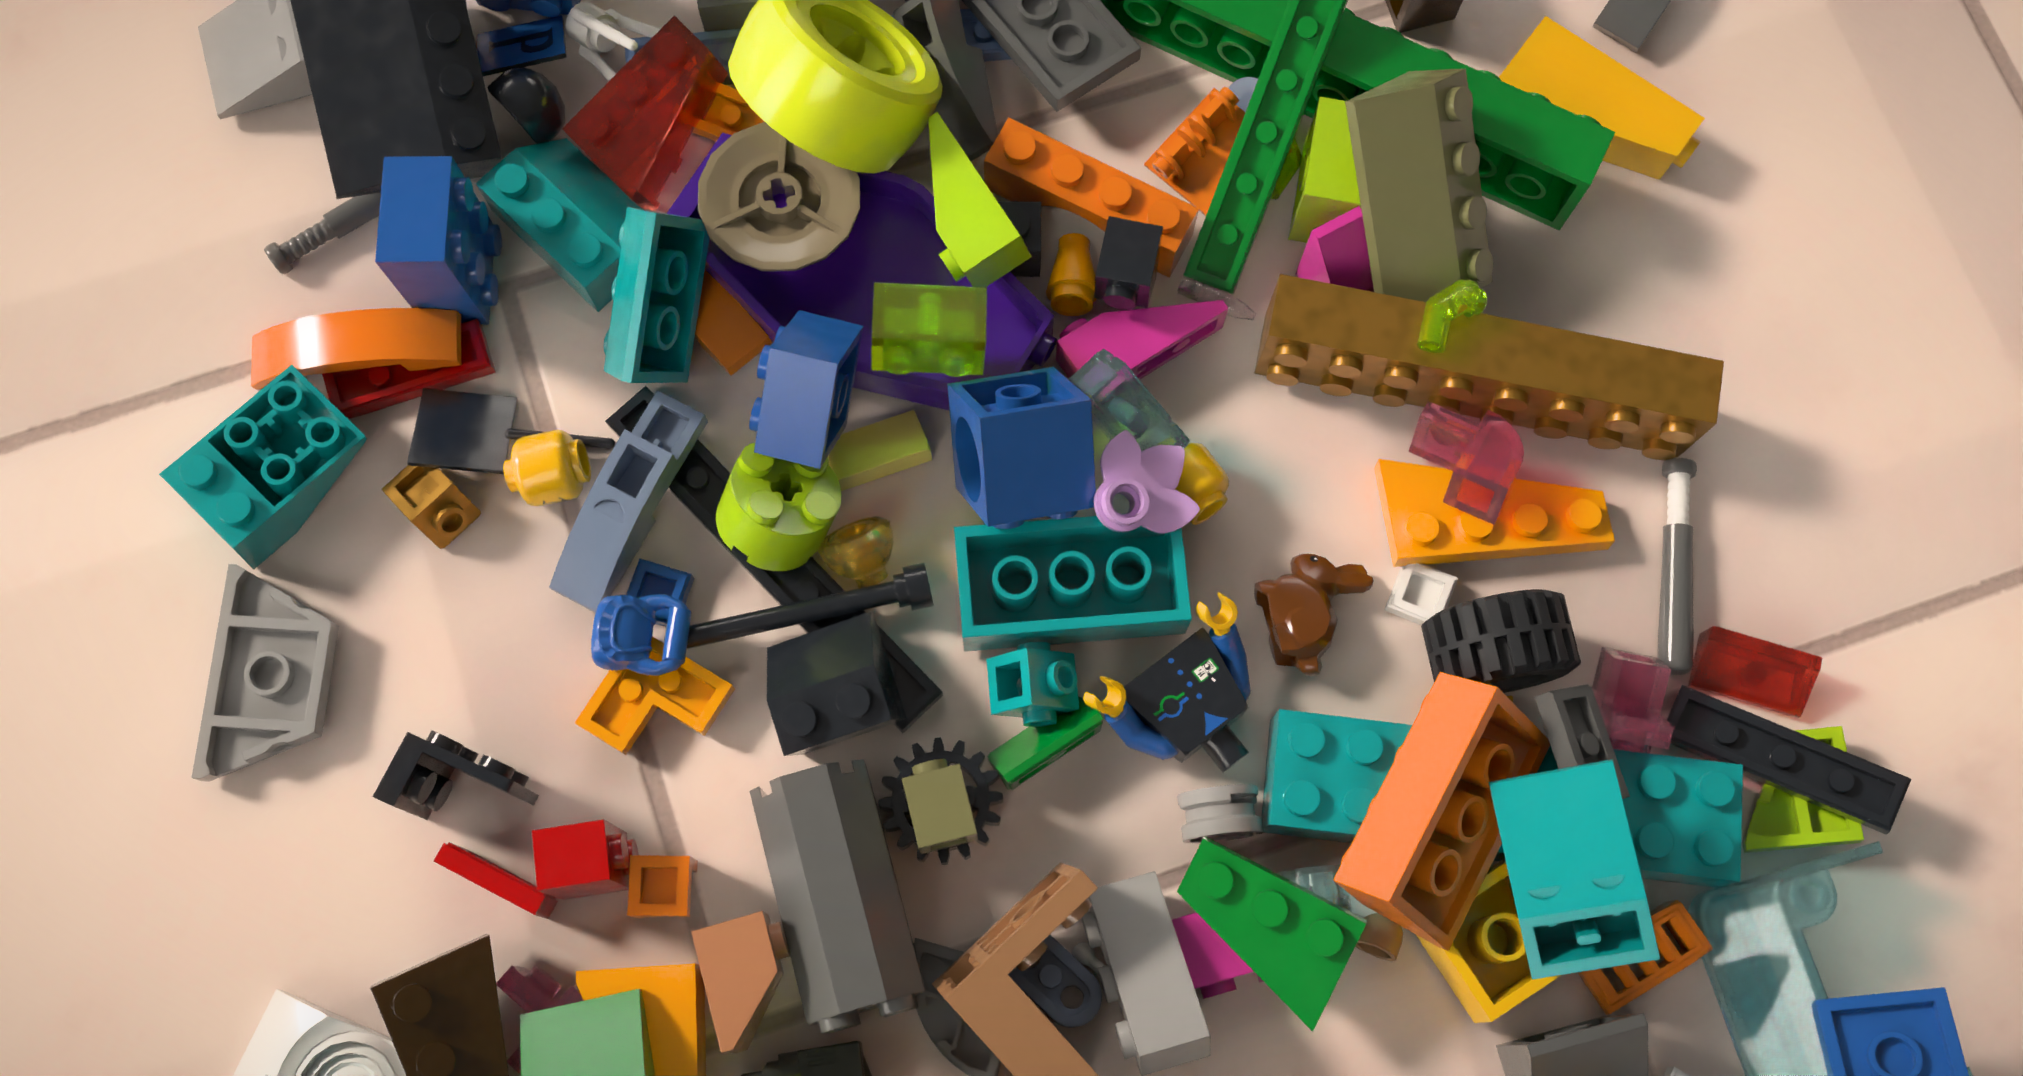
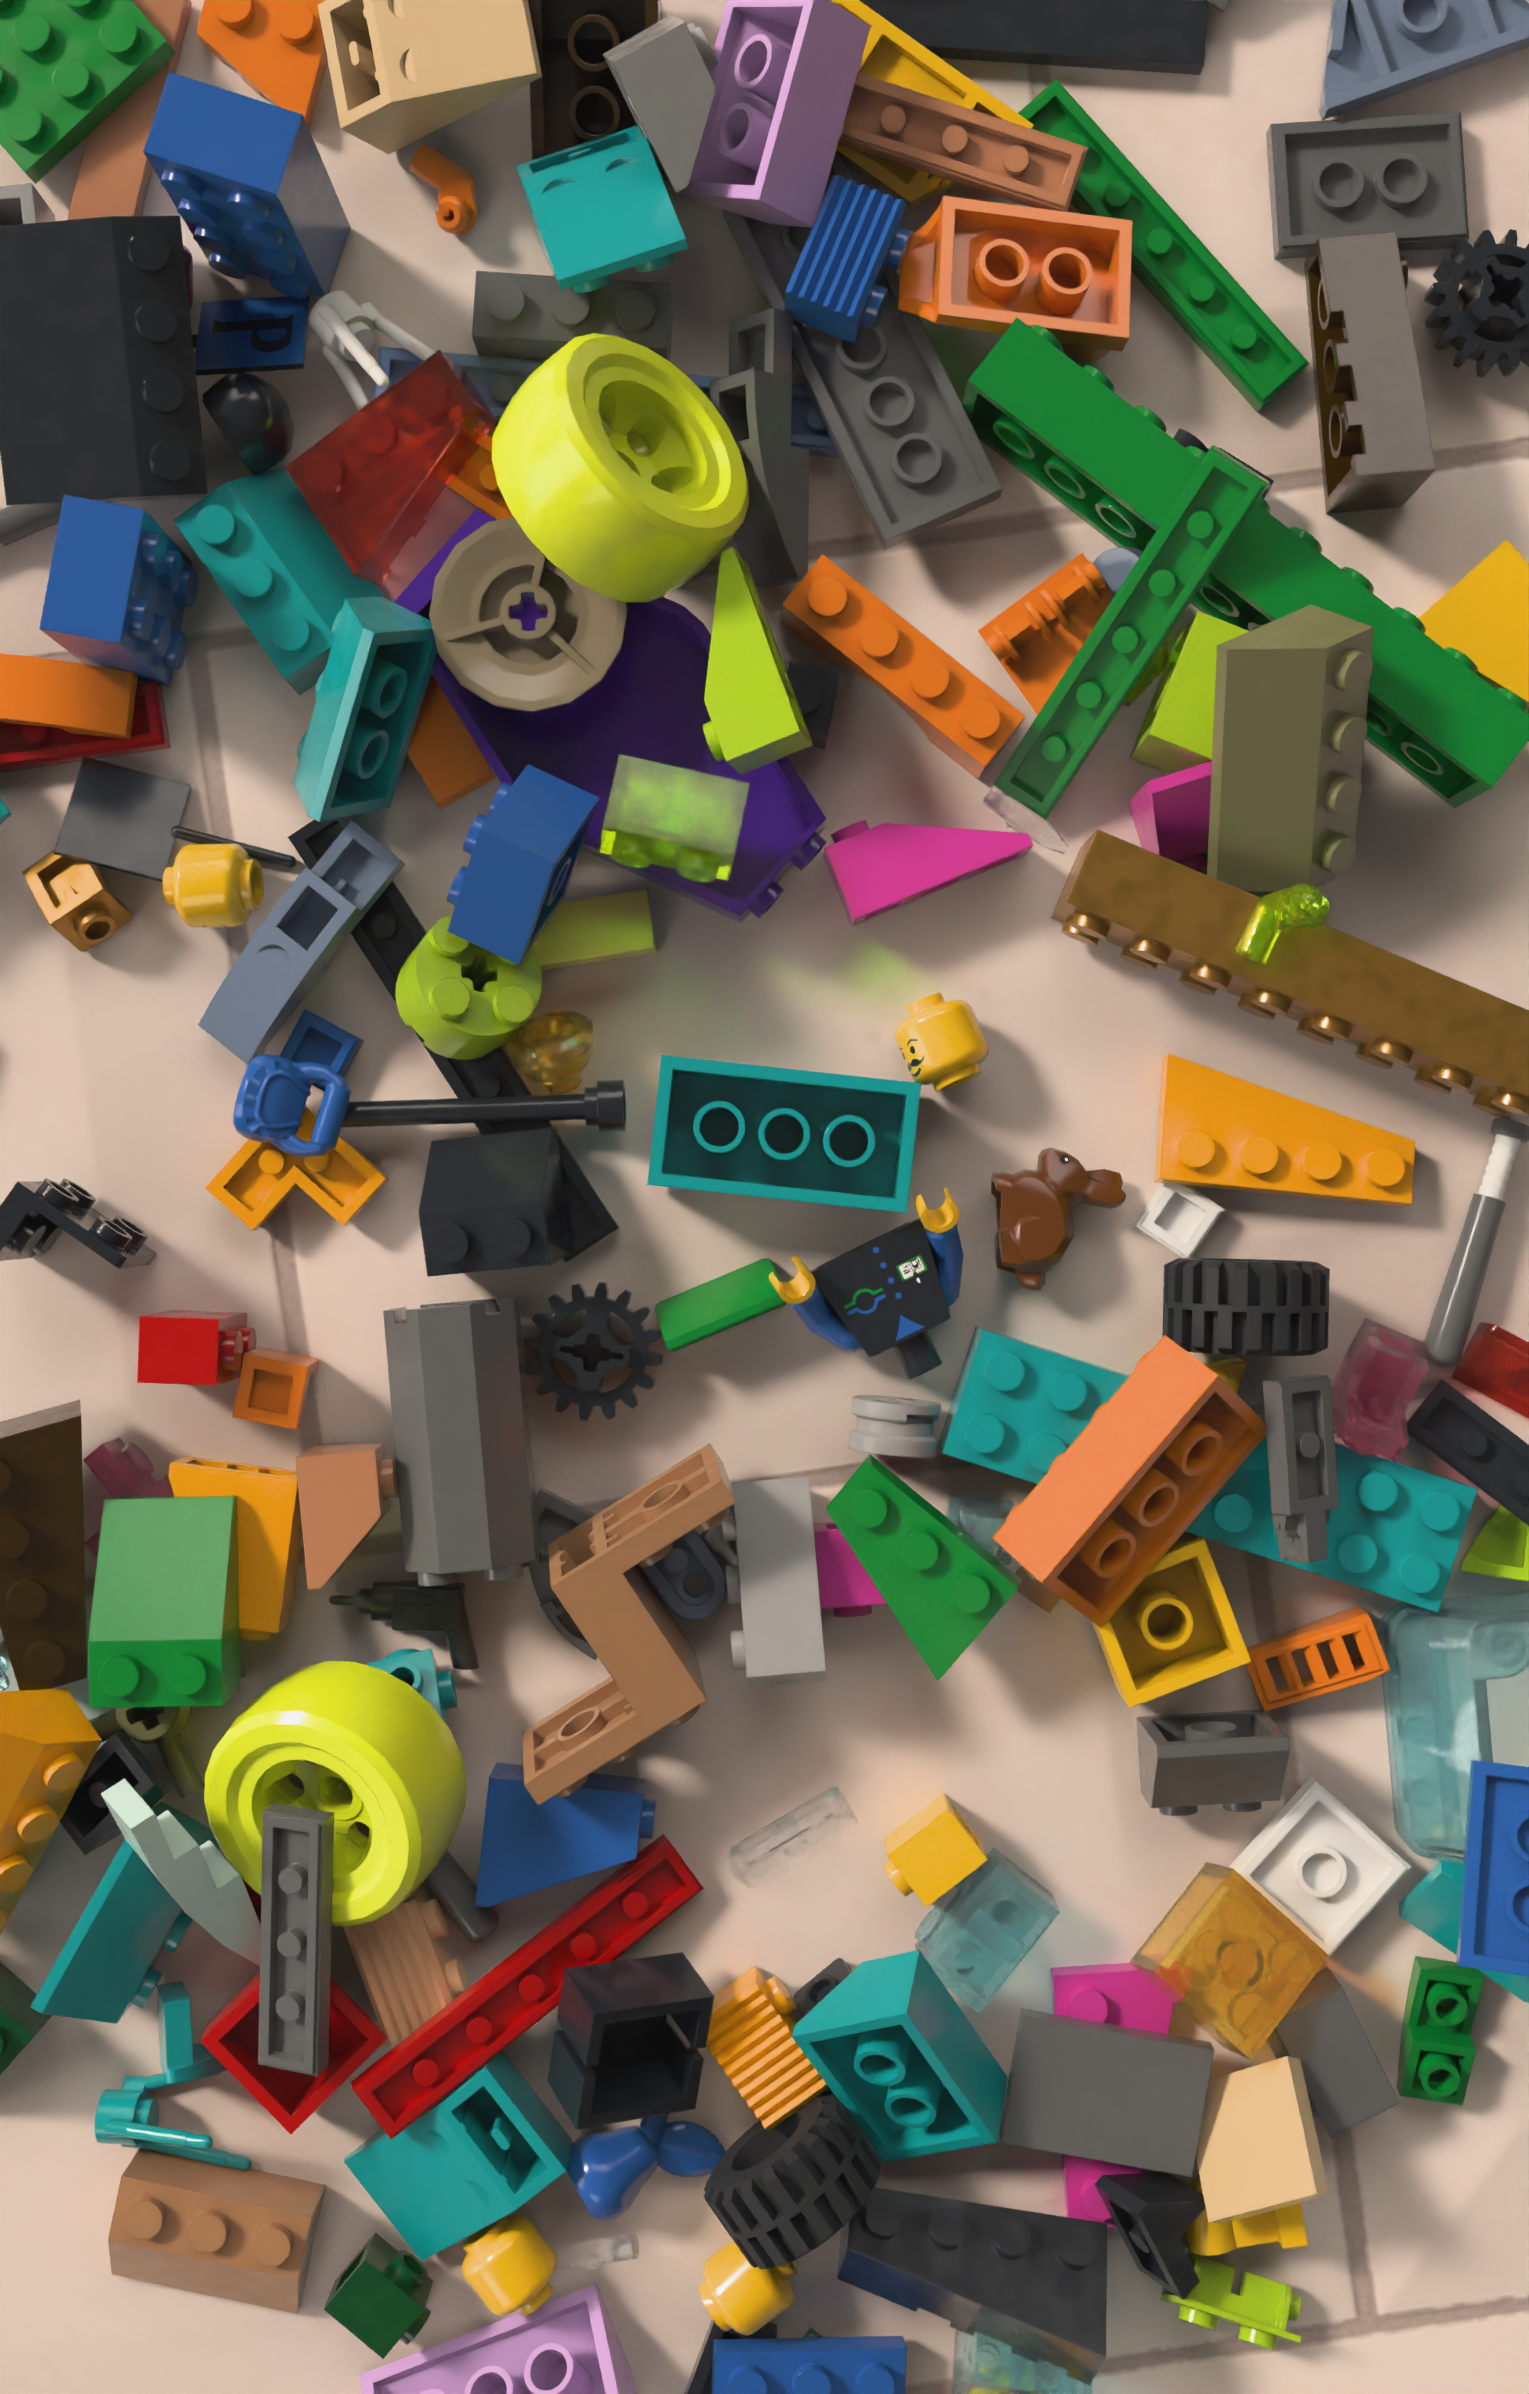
camera: 10 degrees right, 15 degrees up
(495, 879) = (92, 1340): red tile -> none
(939, 806) = (586, 1369): olive brick -> none
(1022, 446) = (756, 976): blue brick -> none
(1033, 684) = (730, 1247): teal brick -> none
(1072, 277) = (862, 763): light orange cone -> none
(1125, 403) = (884, 957): clear light blue brick -> none
(1128, 263) = (924, 775): black slope -> none
(1147, 482) = (891, 1051): lavender plate -> none
(1480, 454) = (1286, 1080): clear pink brick -> none
(1573, 870) = (1250, 1583): teal slope -> none

